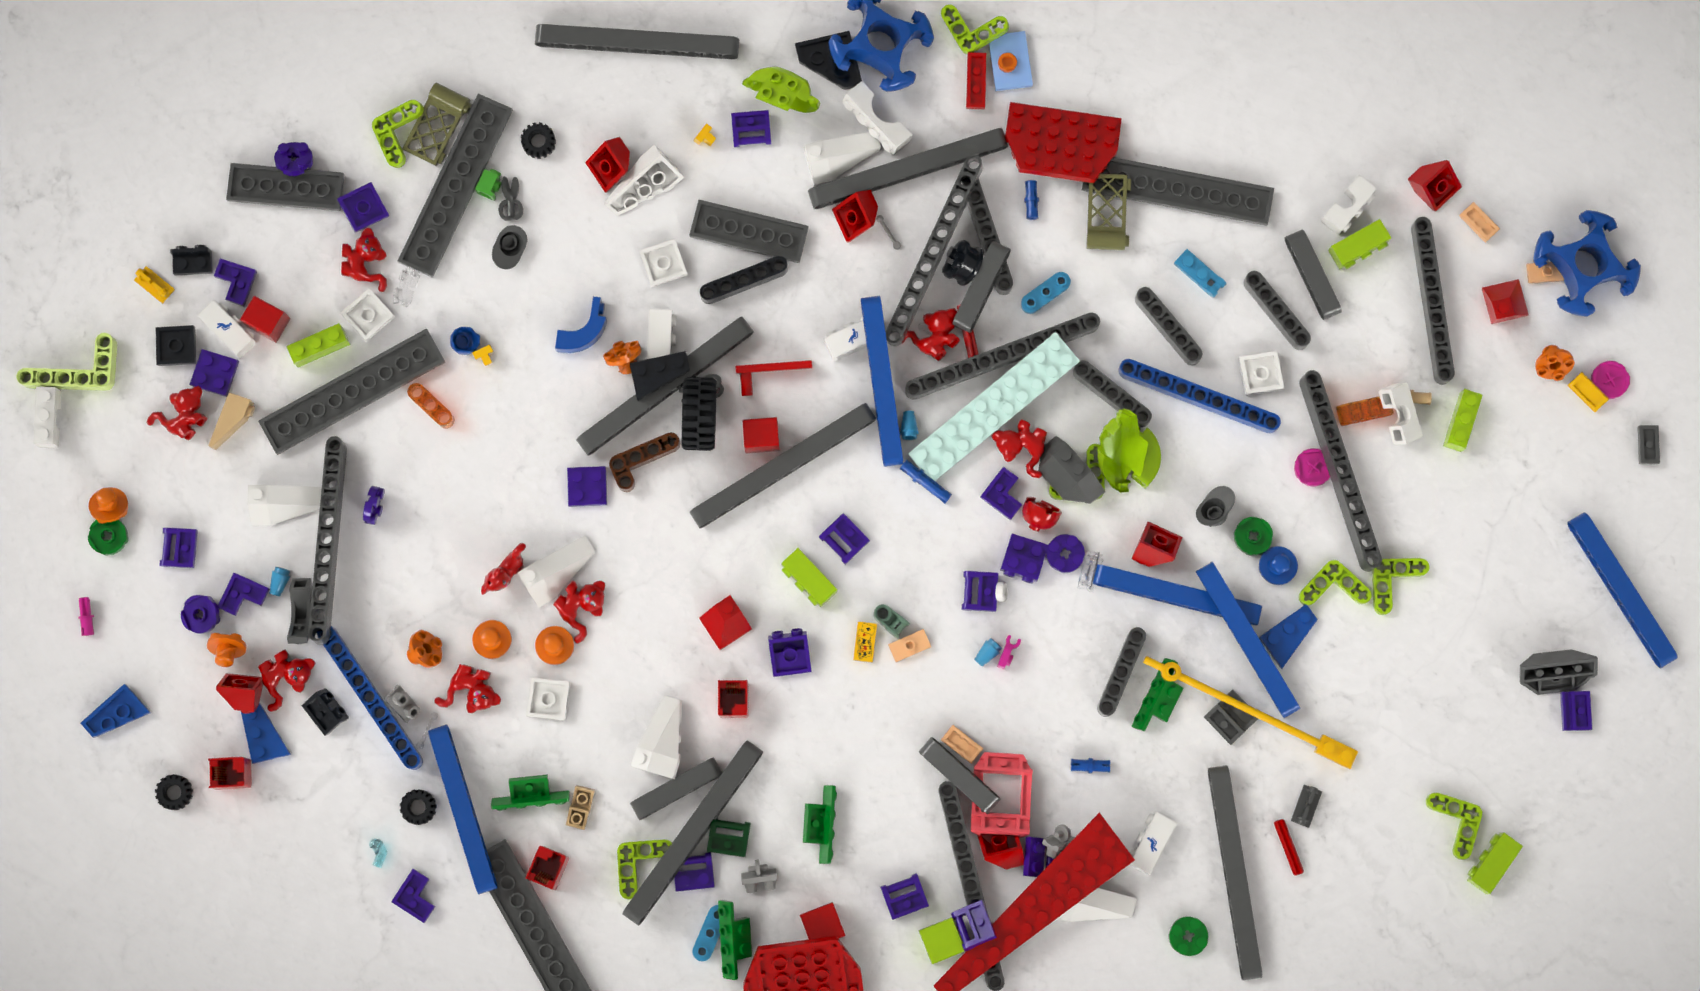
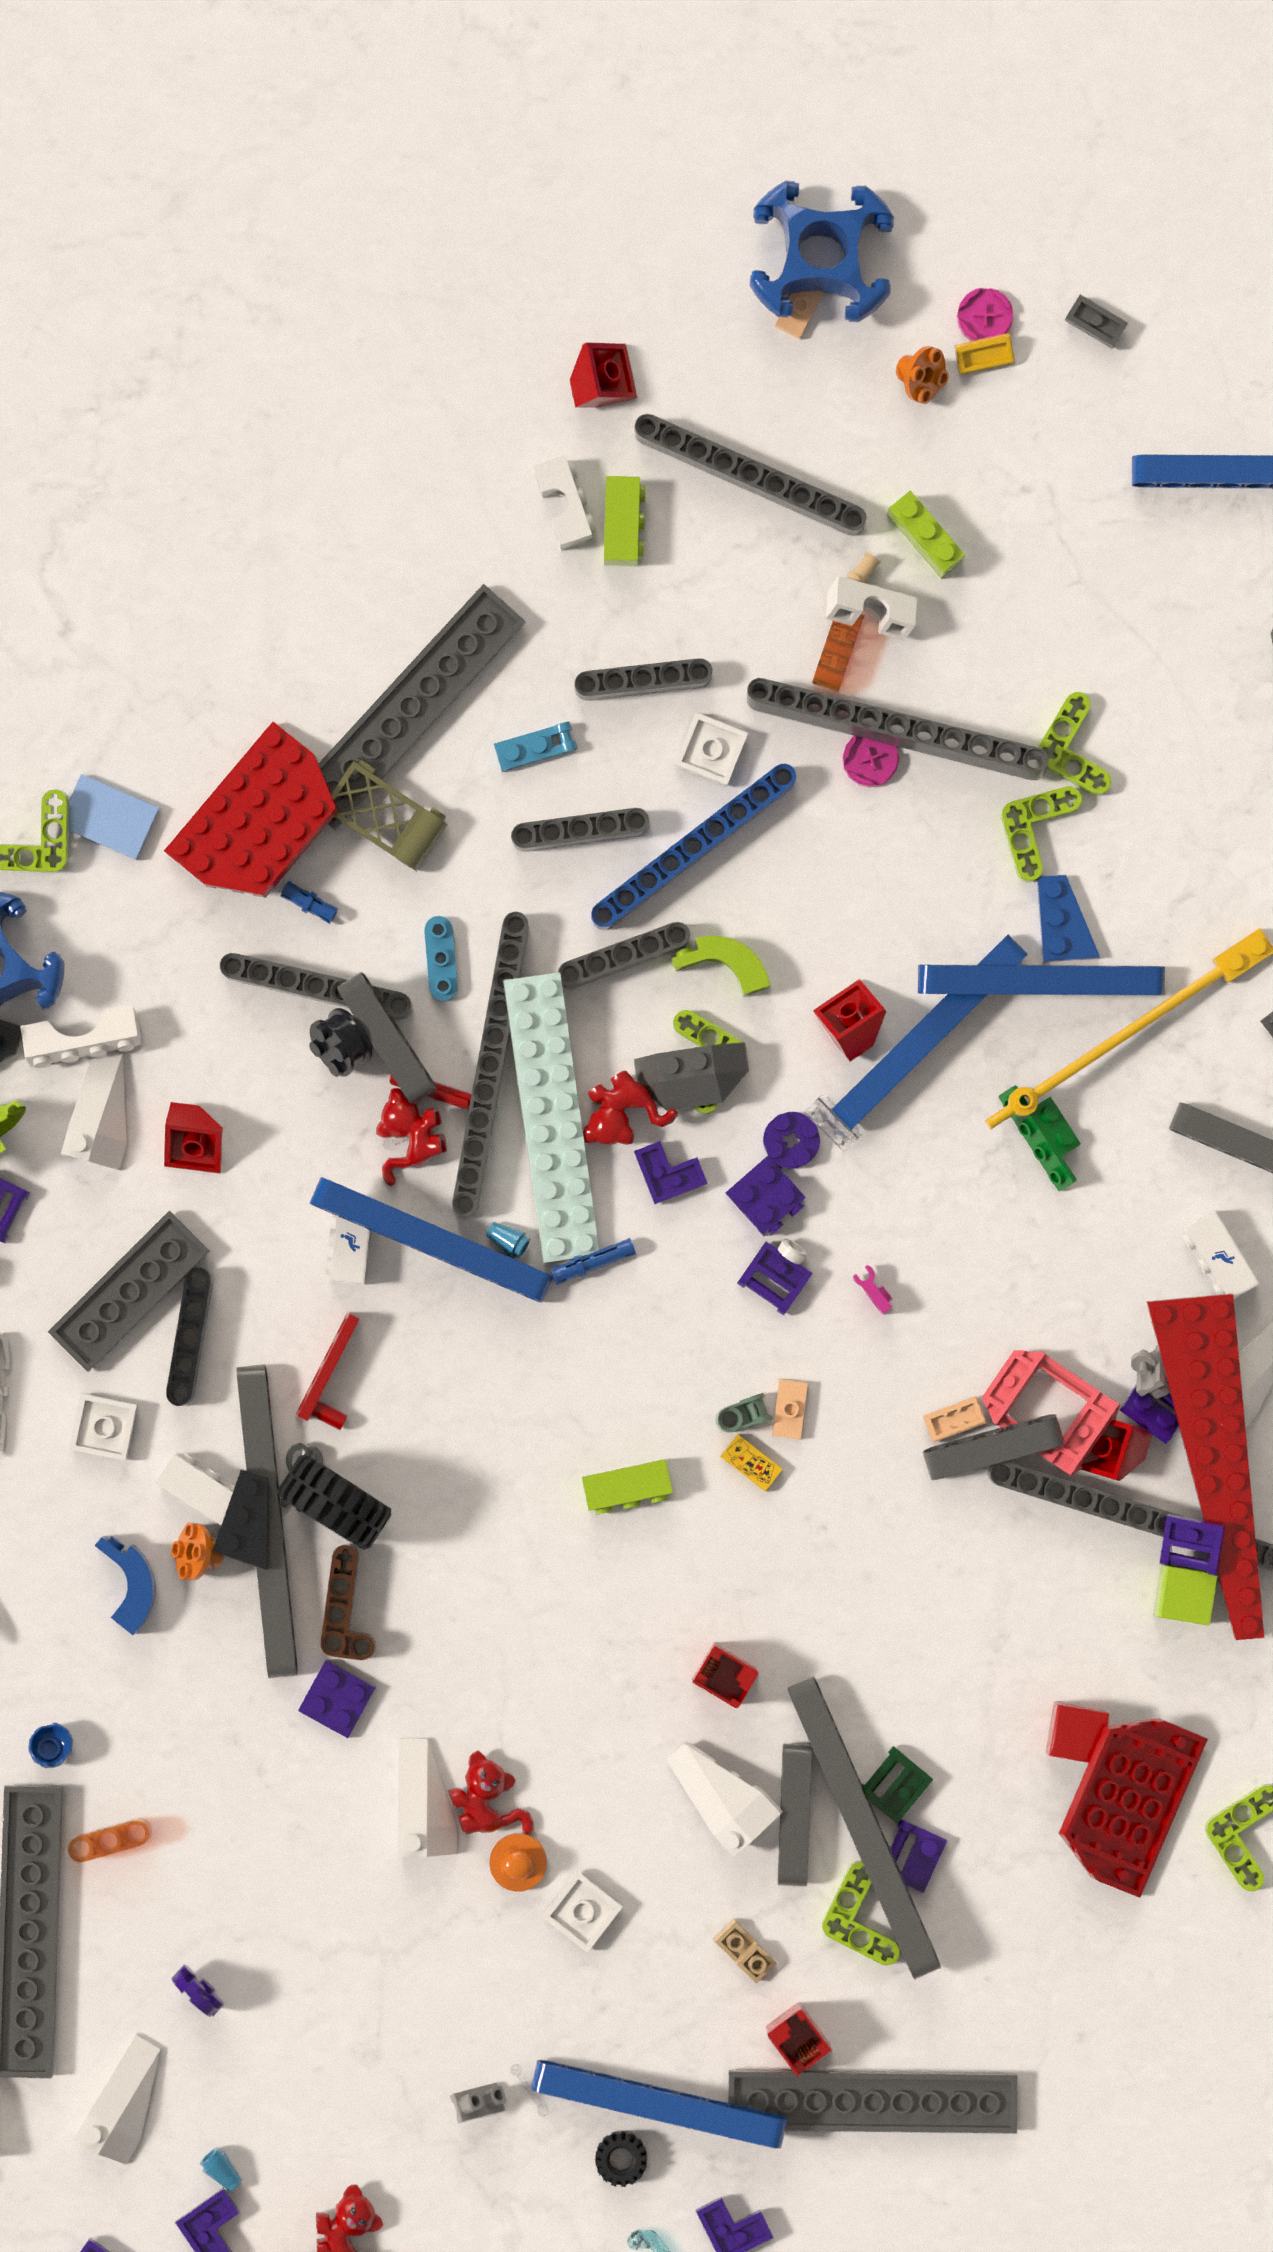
camera: 60 degrees left, 5 degrees up
(300, 597) = (280, 2163): dark grey arch -> none
(325, 711) = (426, 2207): black bracket -> none
(332, 547) = (221, 2077): dark grey beam -> none
(376, 703) = (429, 2146): blue beam -> none
(424, 649) = (425, 2033): orange plate -> none
(479, 695) = (525, 1996): red animal -> none
(483, 353) = (83, 1731): yellow tile -> none
(492, 639) = (462, 1938): orange plate -> none
(501, 576) = (390, 1881): red animal -> none
(529, 792) = (688, 2005): green bracket -> none
(703, 940) = (992, 1870): dark azure plate -> none
(725, 622) = (620, 1626): red slope -> none
(734, 937) = (1029, 1855): green bracket -> none
(759, 874) = (966, 1774): light grey hips -> none
(761, 435) = (407, 1437): red piece -> none
(783, 465) = (462, 1431): dark grey beam -> none
(789, 652) = (708, 1567): dark purple plate -> none
(819, 824) = (947, 1659): green bracket -> none
(849, 534) = (601, 1400): dark purple plate -> none
(896, 244) = (262, 1111): light grey hinge -> none
(905, 903) = (1111, 1608): dark purple plate -> none
(908, 168) = (171, 1036): dark grey beam -> none
(934, 241) = (289, 1062): dark grey beam -> none
(976, 80) = (108, 877): red plate -> none
(988, 651) = (858, 1315): dark azure cone -> none
(1007, 62) = (109, 822): orange tile -> none
(1040, 514) = (724, 1141): red cylinder -> none
(1090, 765) = (1077, 1273): blue pin -> none
(1121, 450) = (706, 990): lime animal -> none
(1123, 662) = (997, 1169): dark grey beam -> none
(1216, 506) = (848, 914): dark grey piece -> none
(1229, 720) = (1125, 1065): dark grey slope -> none
(1242, 534) = (900, 901): green plate -> none
(1278, 565) = (968, 881): blue plate -> none
(1313, 274) = (624, 604): dark grey beam -> none
(1479, 222) = (685, 351): light nougat plate -> none
(1505, 301) = (805, 383): red slope -> none

